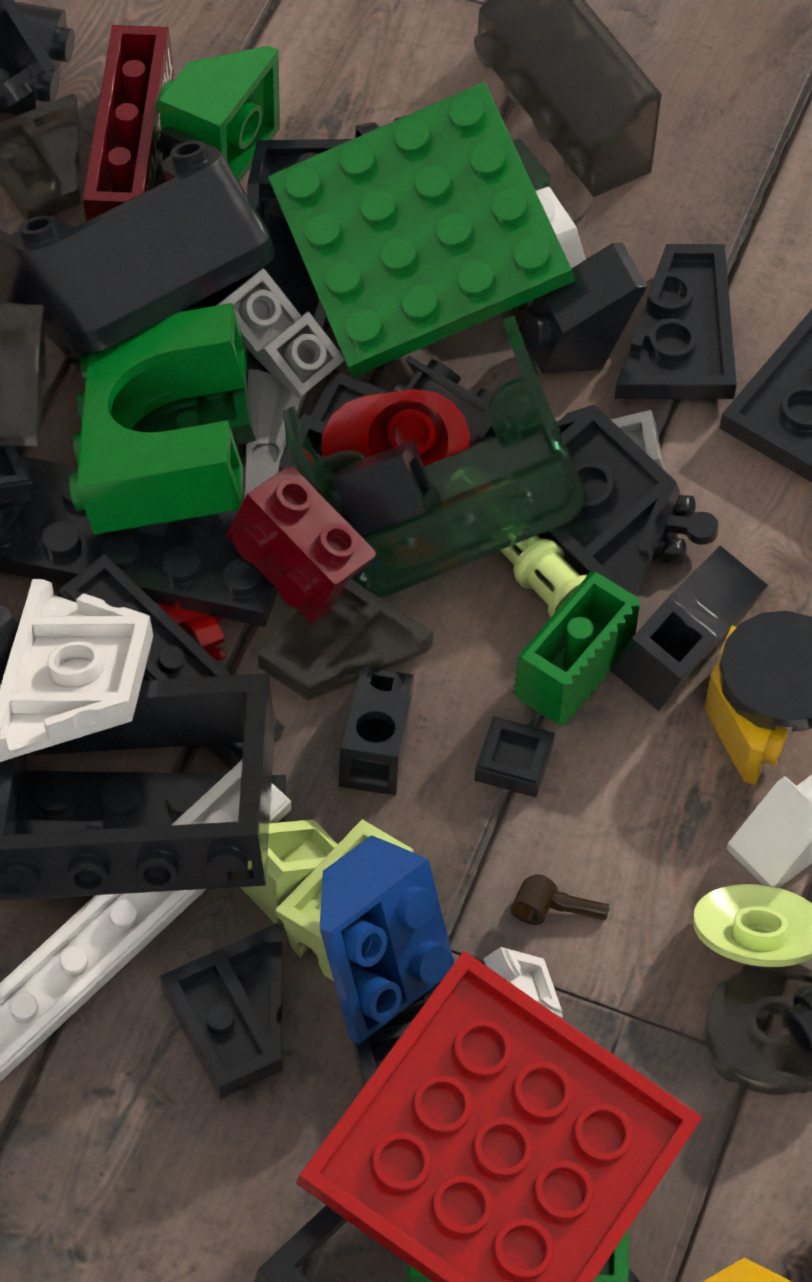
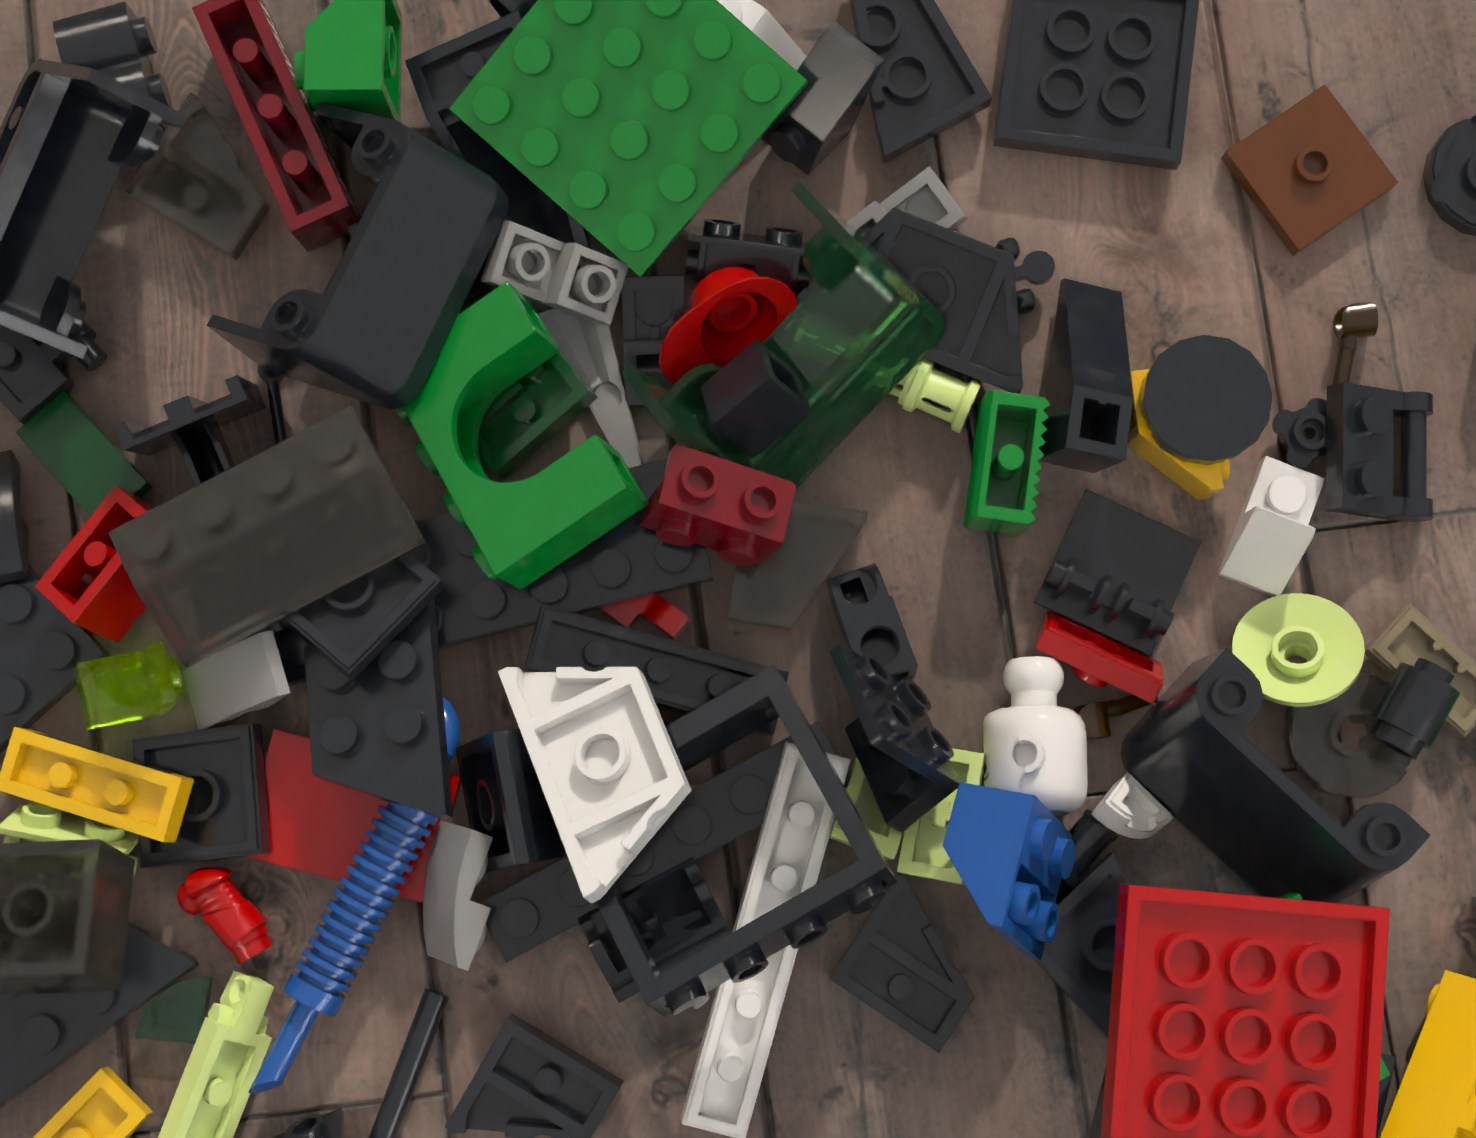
camera: 30 degrees left, 25 degrees up
(349, 801) = (895, 740): none -> black bracket
(478, 872) = (1035, 742): none -> white piece
(514, 756) = (997, 587): black tile -> none
(569, 846) = (1099, 658): none -> red plate
(628, 999) = (1243, 805): none -> black windscreen
(630, 794) = (1118, 572): none -> black hinge

